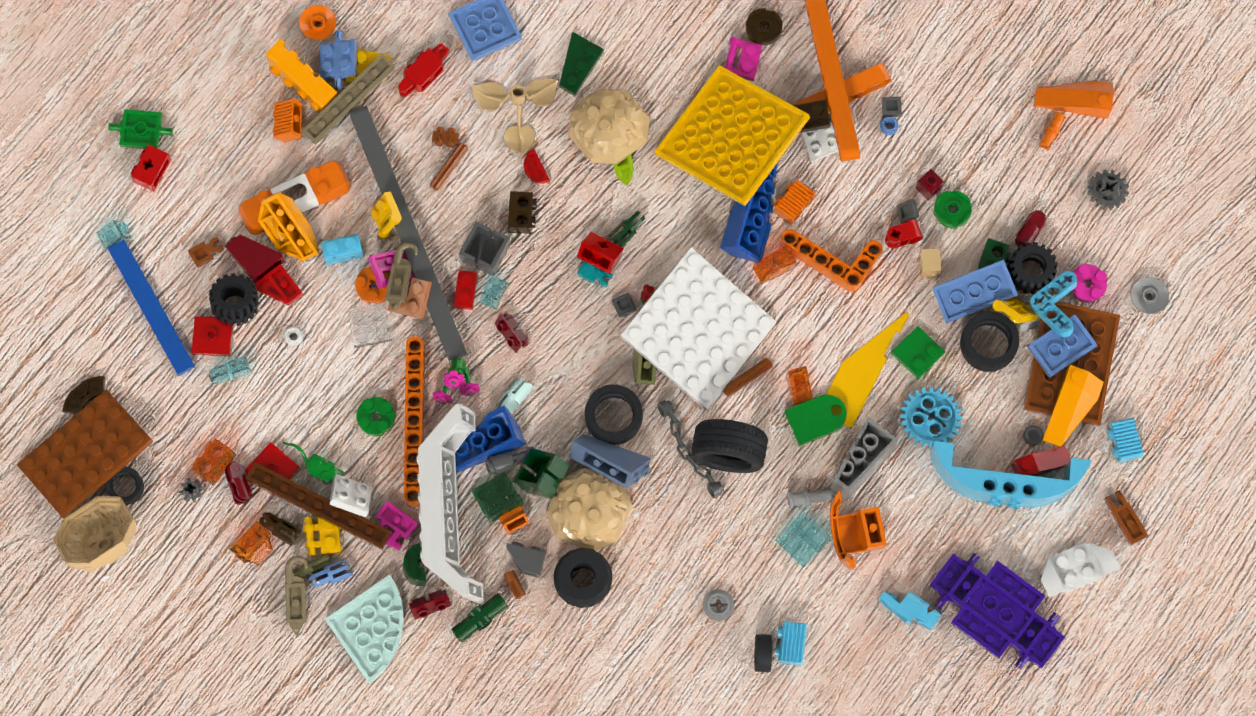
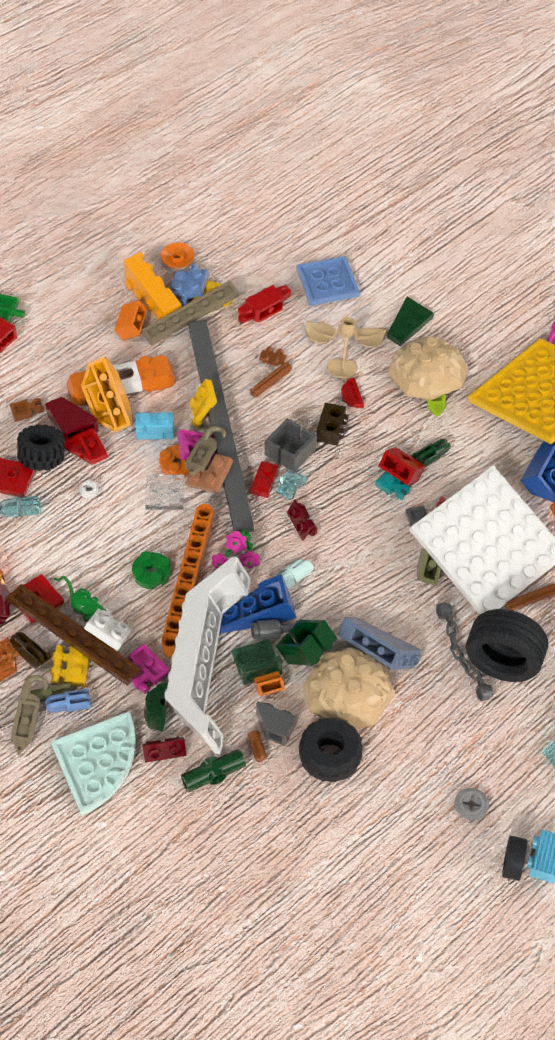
camera: 10 degrees right, 20 degrees down
(608, 392) = (391, 585): black tyre -> none

